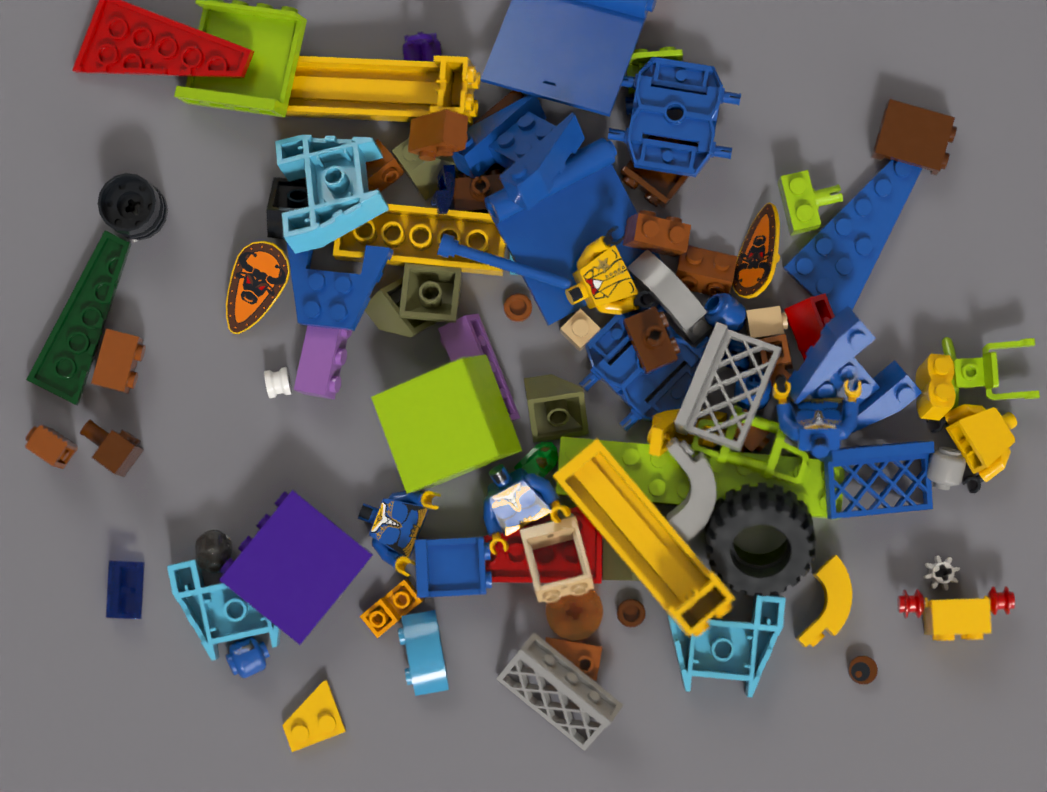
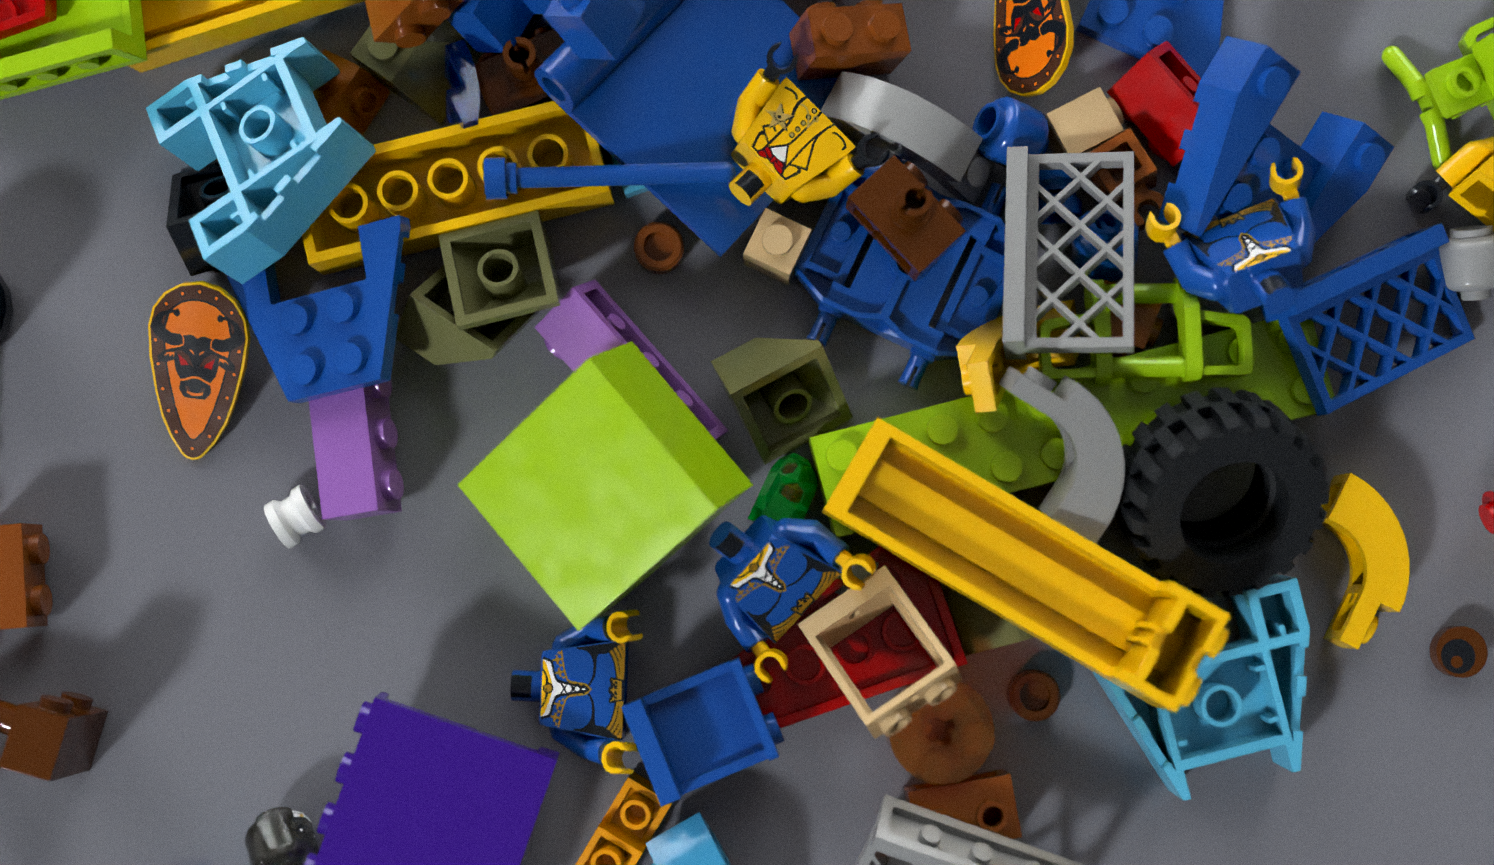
camera: 20 degrees left, 0 degrees up
(706, 271) = (955, 73): dark orange bracket -> none
(934, 381) = (1409, 117): yellow brick -> none

